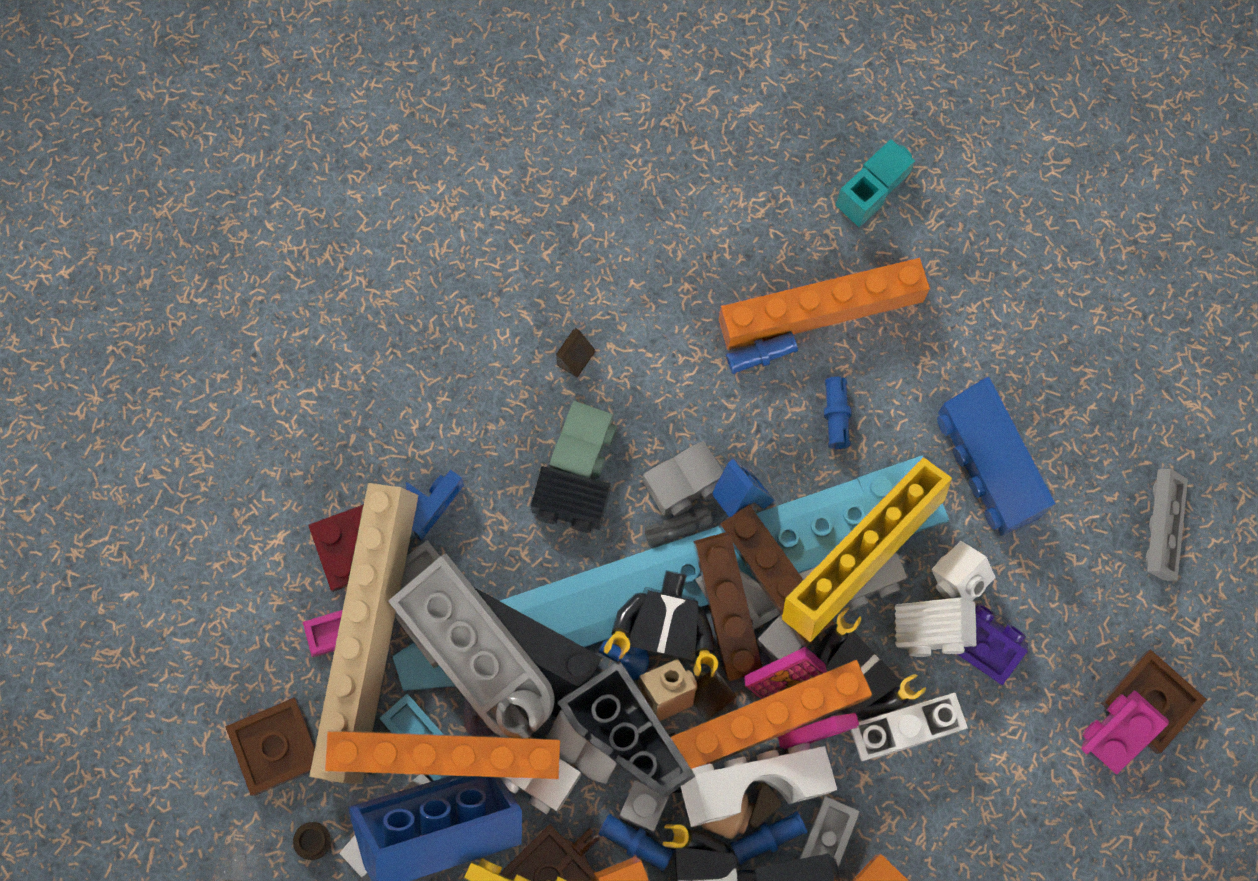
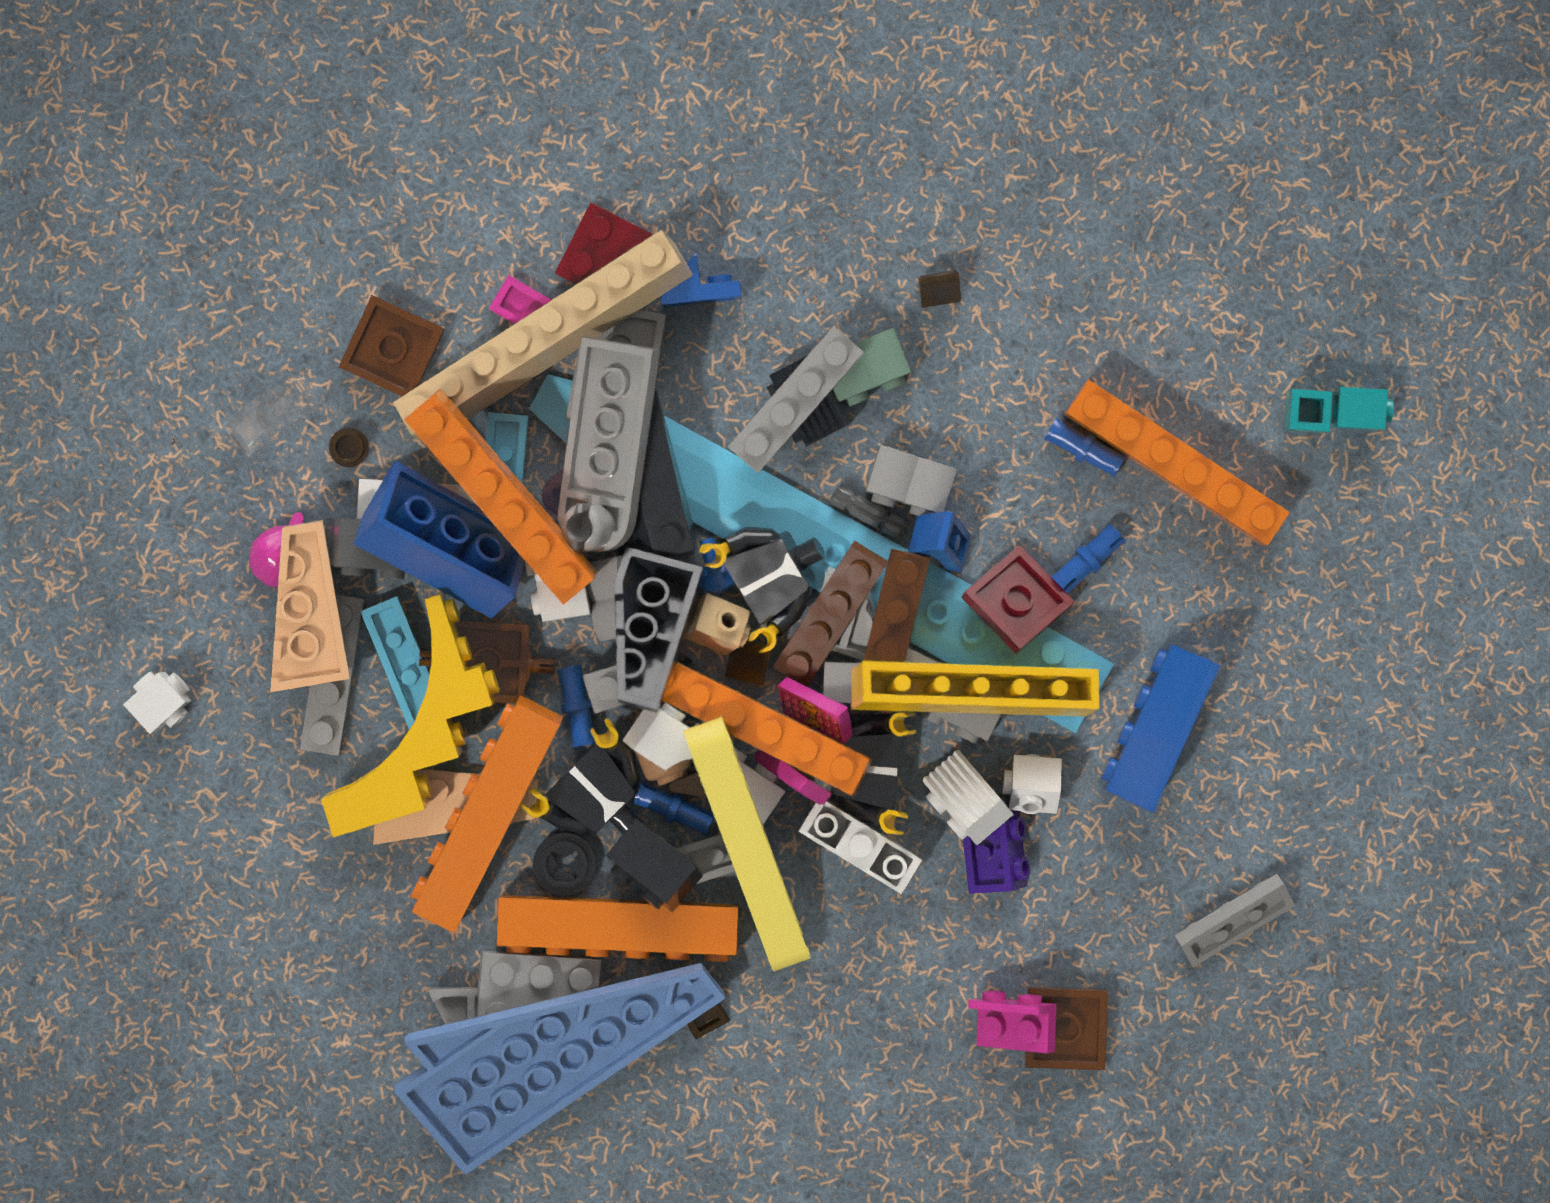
camera: 50 degrees right, 15 degrees up
(563, 501) = (795, 399): none -> light grey plate
(826, 477) = (1017, 599): none -> dark red plate
(840, 802) = (747, 843): none -> light yellow beam

